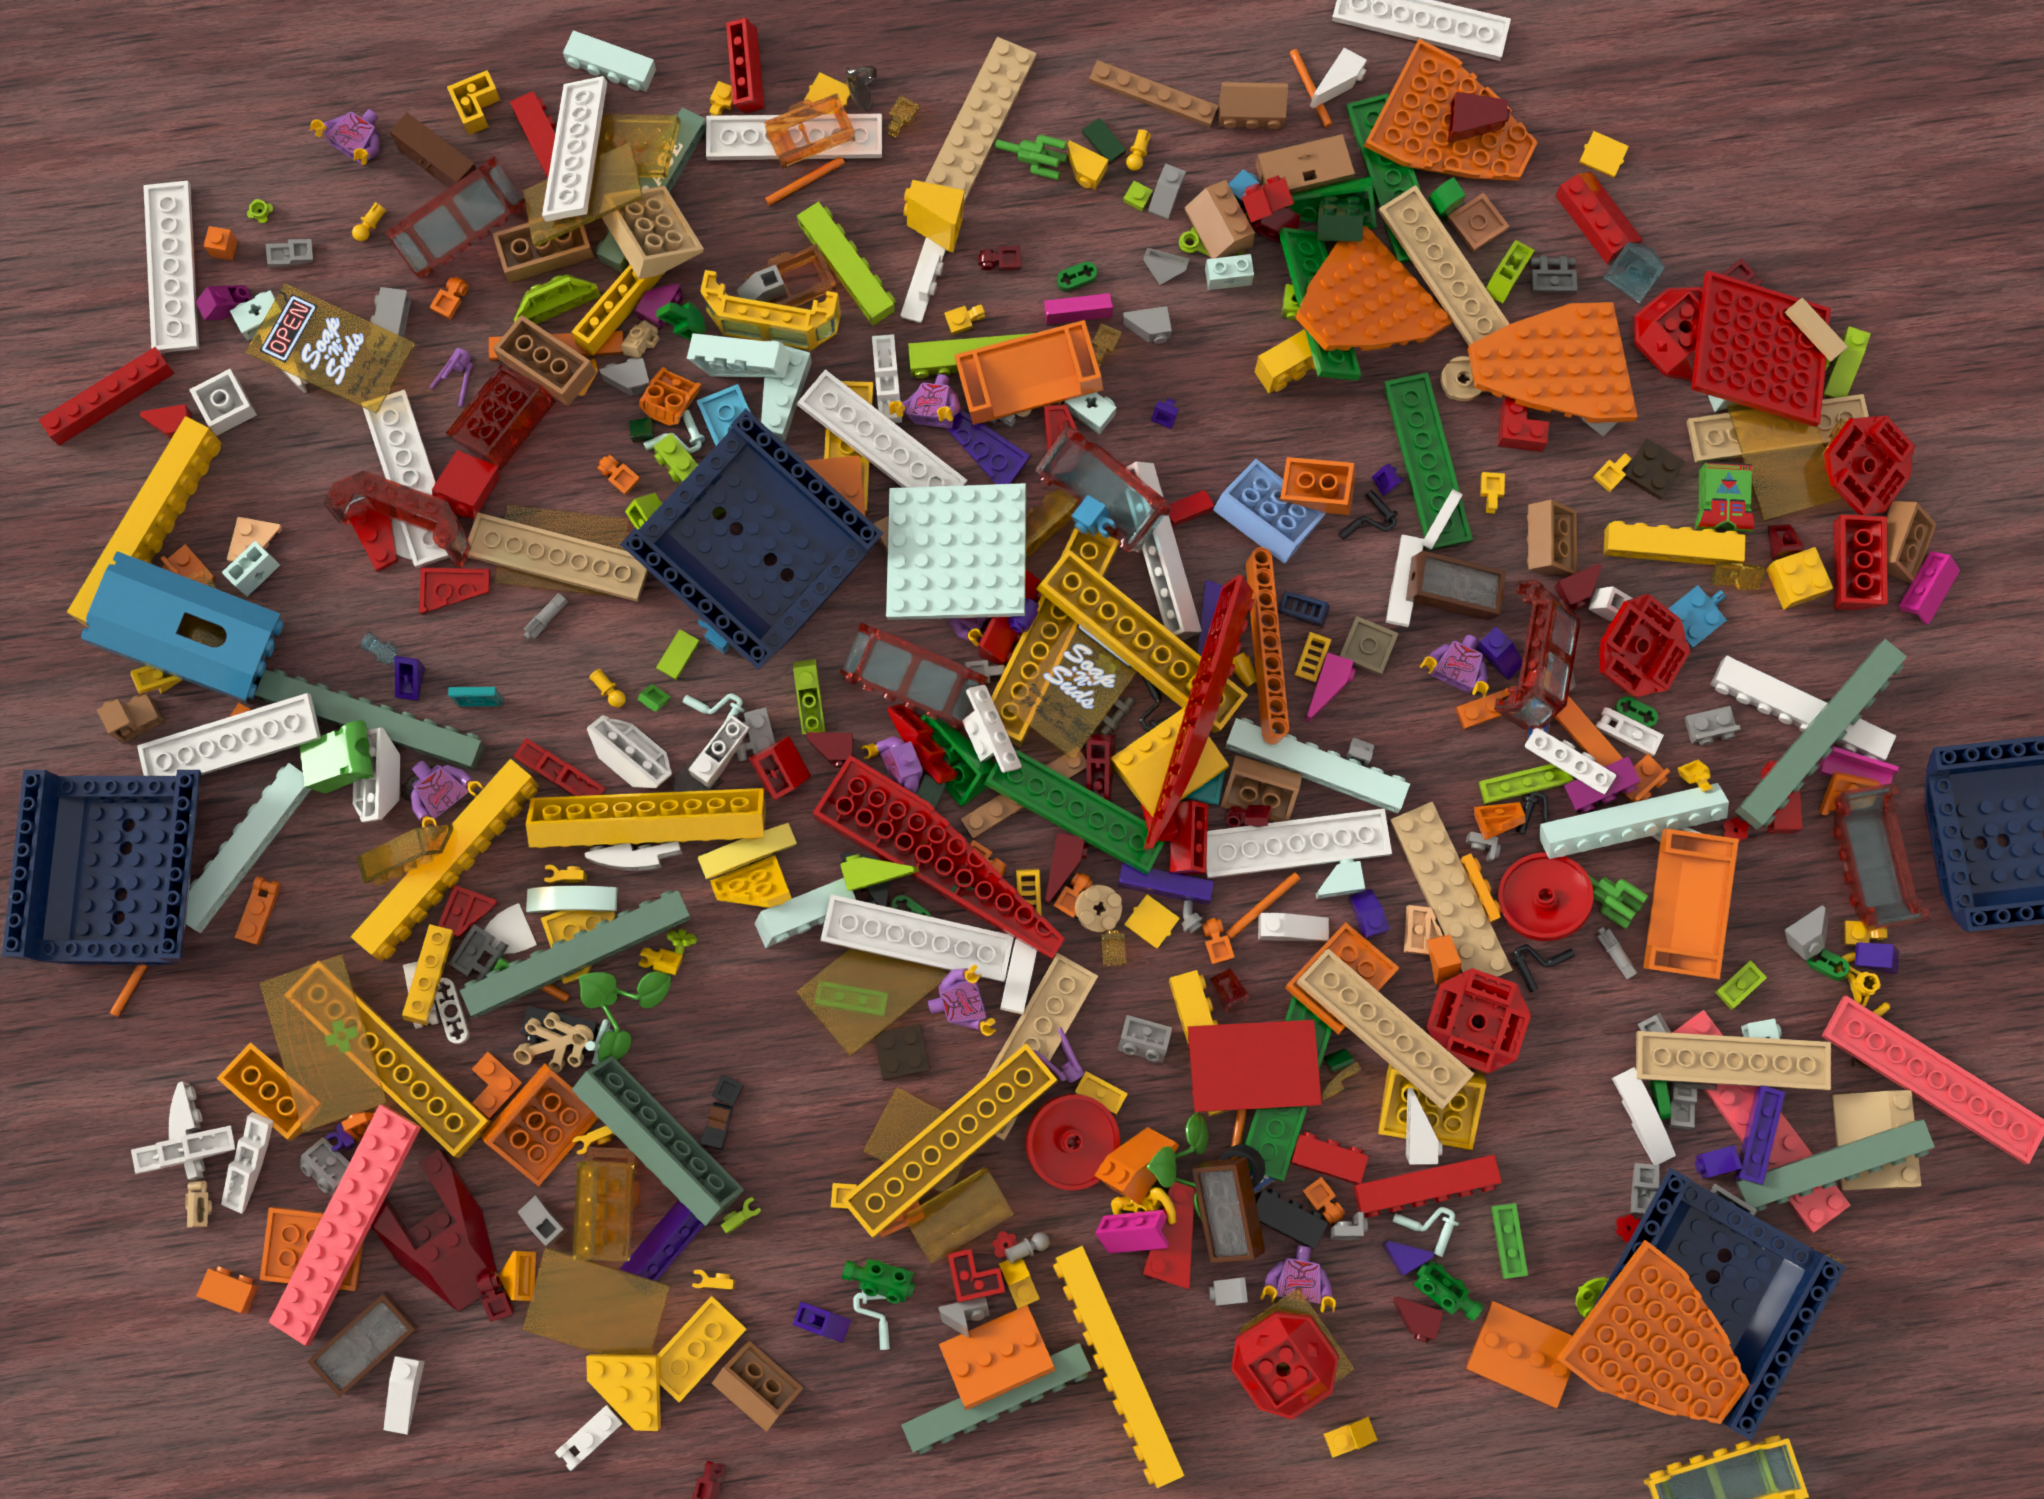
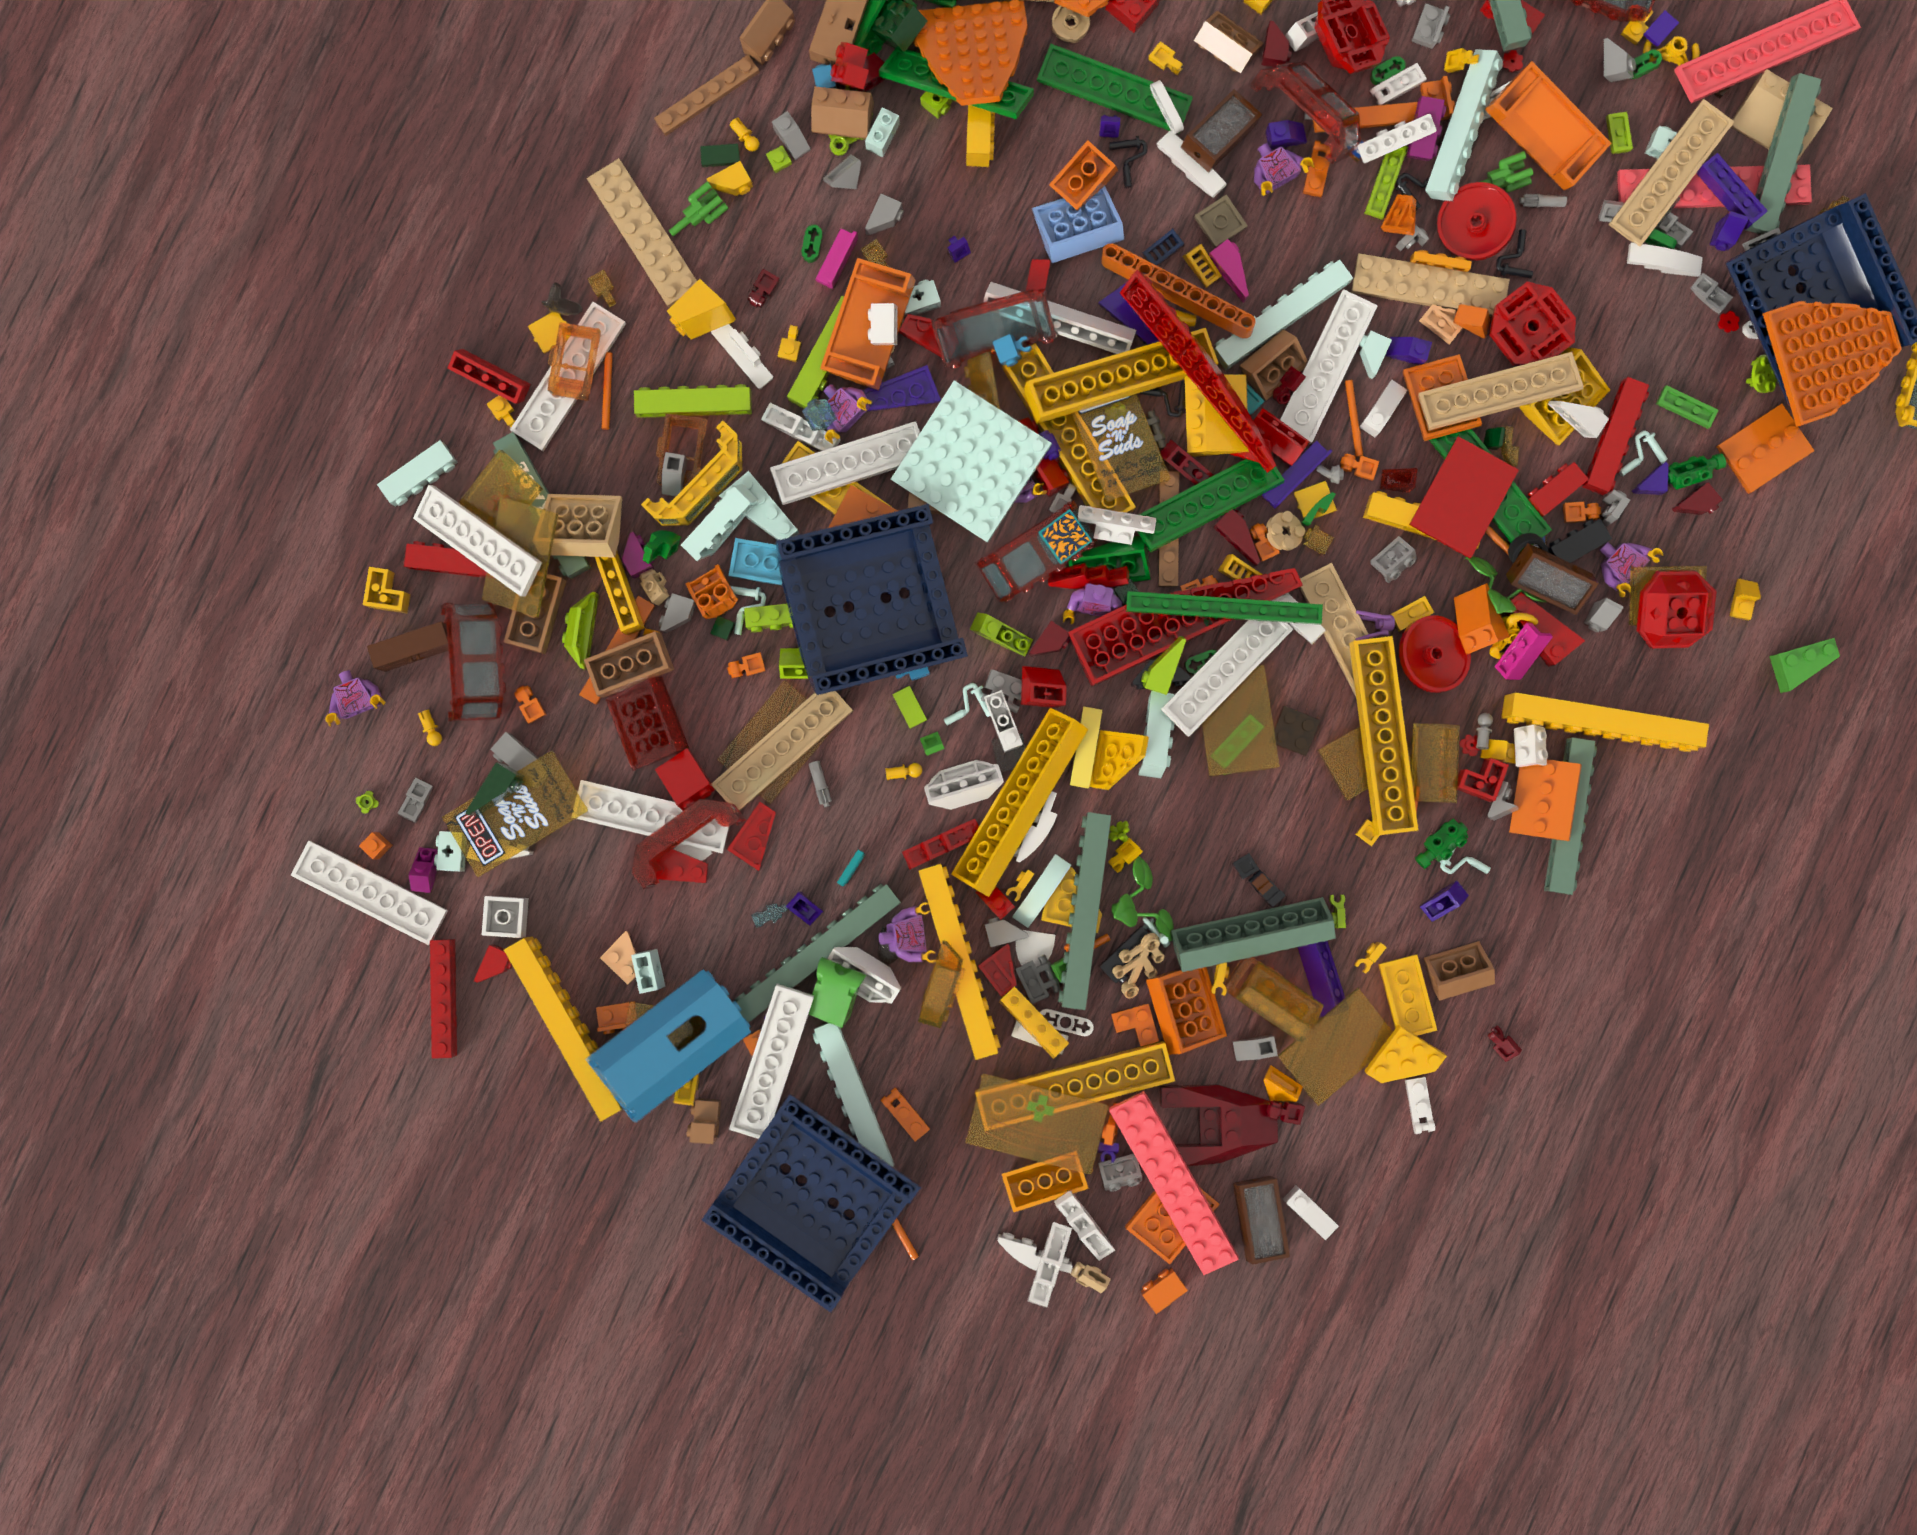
camera: 55 degrees left, 10 degrees up
(342, 310) = (498, 785): none -> dark green slope
(458, 361) = (584, 728): medium lavender plant -> none
(505, 888) = (1003, 932): none -> light grey slope
(531, 862) = (997, 902): none -> red plate
(909, 383) = (819, 414): none -> clear light blue brick
(939, 686) = (1064, 536): none -> tile
(962, 1001) = (1291, 666): medium lavender torso -> none
(975, 892) = (1224, 608): none -> green plate
(1037, 385) = (883, 324): none -> white brick
(1041, 1304) = (1530, 746): none -> white bracket
(1150, 927) = (1320, 506): none -> green slope
(1360, 751) = (1292, 278): light grey bracket -> none

